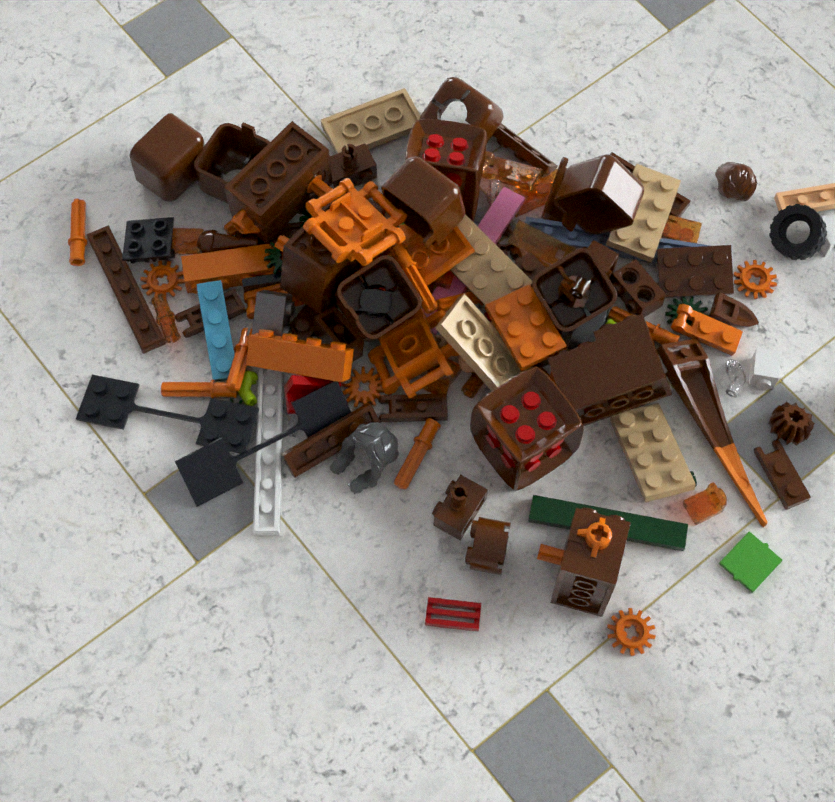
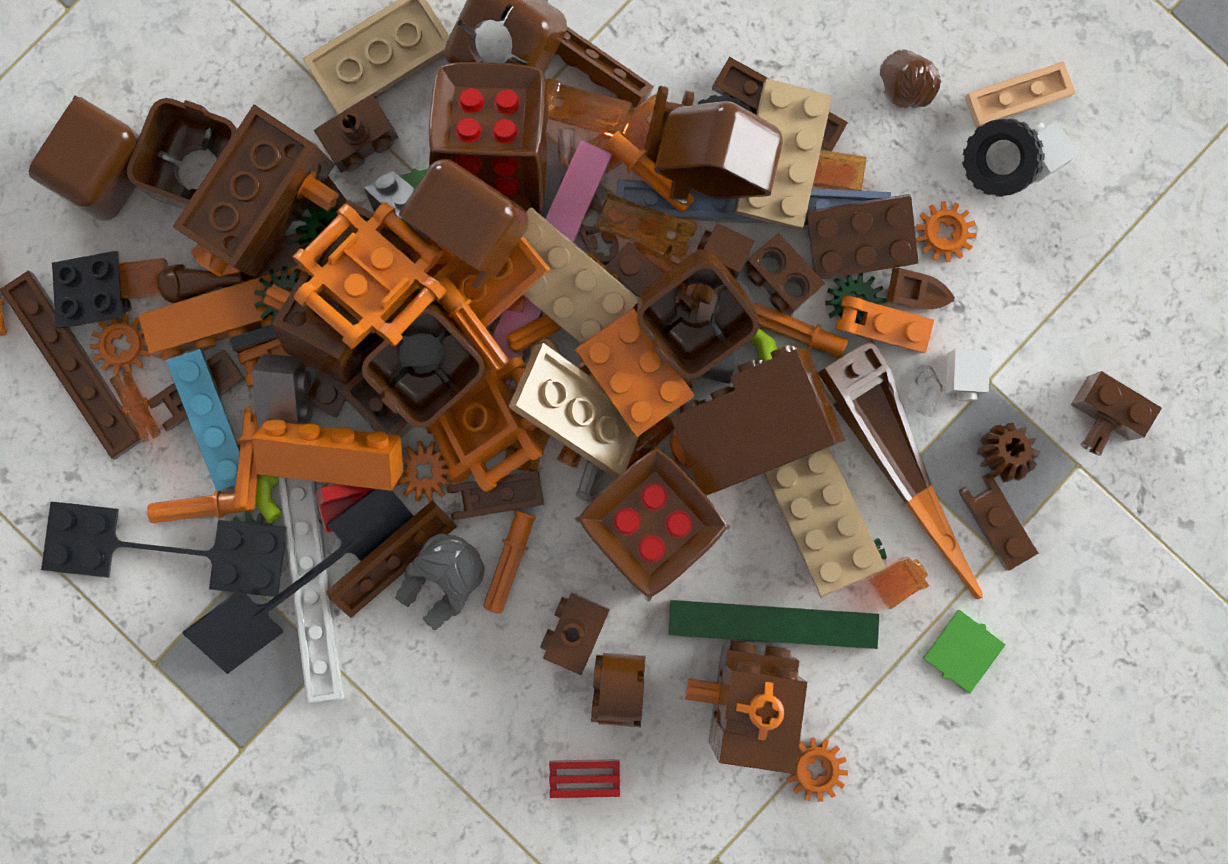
camera: 10 degrees left, 20 degrees up
(542, 204) = (643, 167): none -> orange axle

